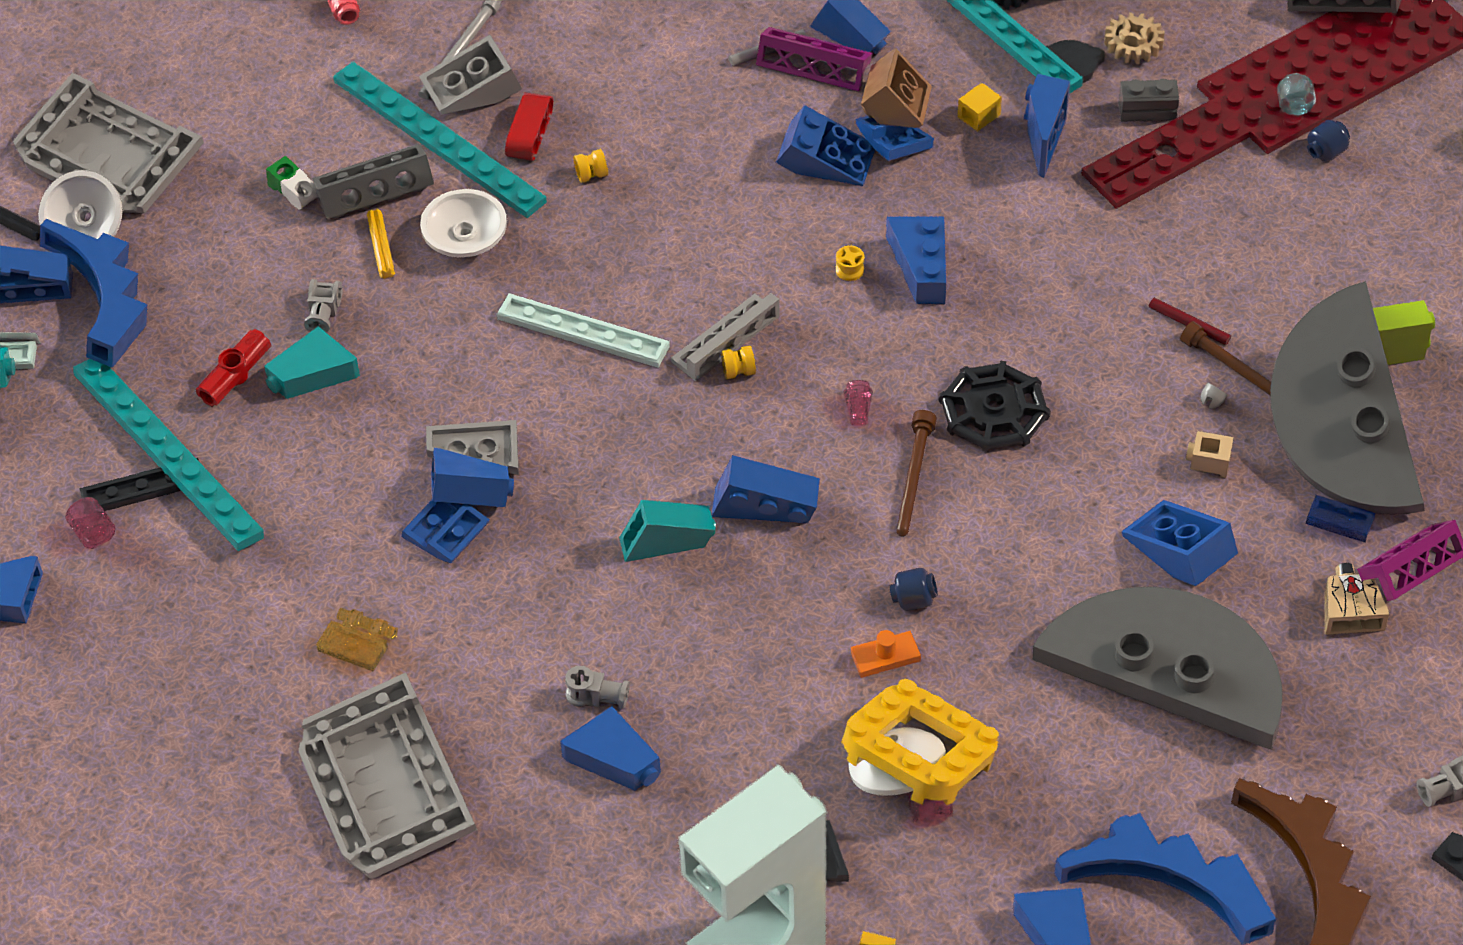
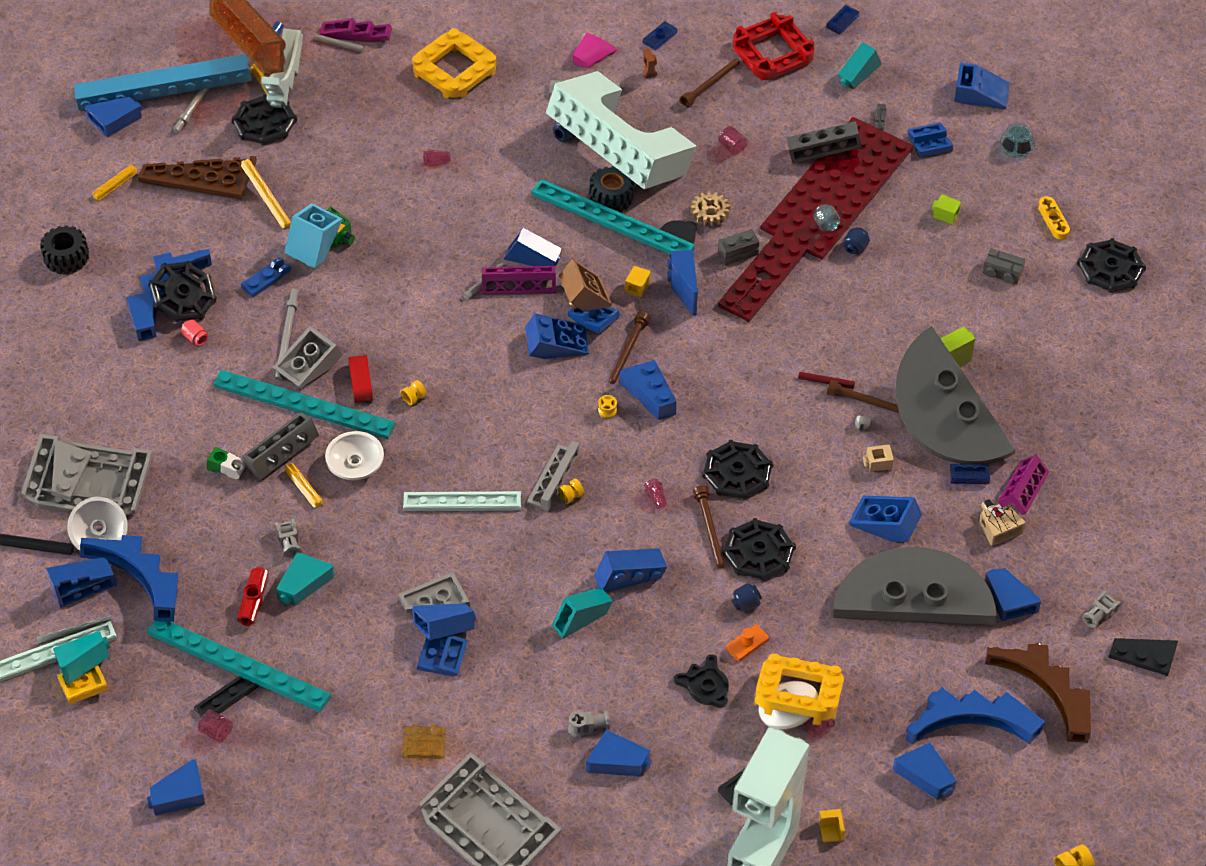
camera: 25 degrees left, 0 degrees up
(82, 128) = (68, 469): none -> light grey wing
(795, 692) = (705, 683): none -> black tile
(959, 161) = (641, 320): none -> reddish brown piece
(969, 541) = (755, 558): none -> black plate
(1317, 715) = (1010, 595): none -> blue slope

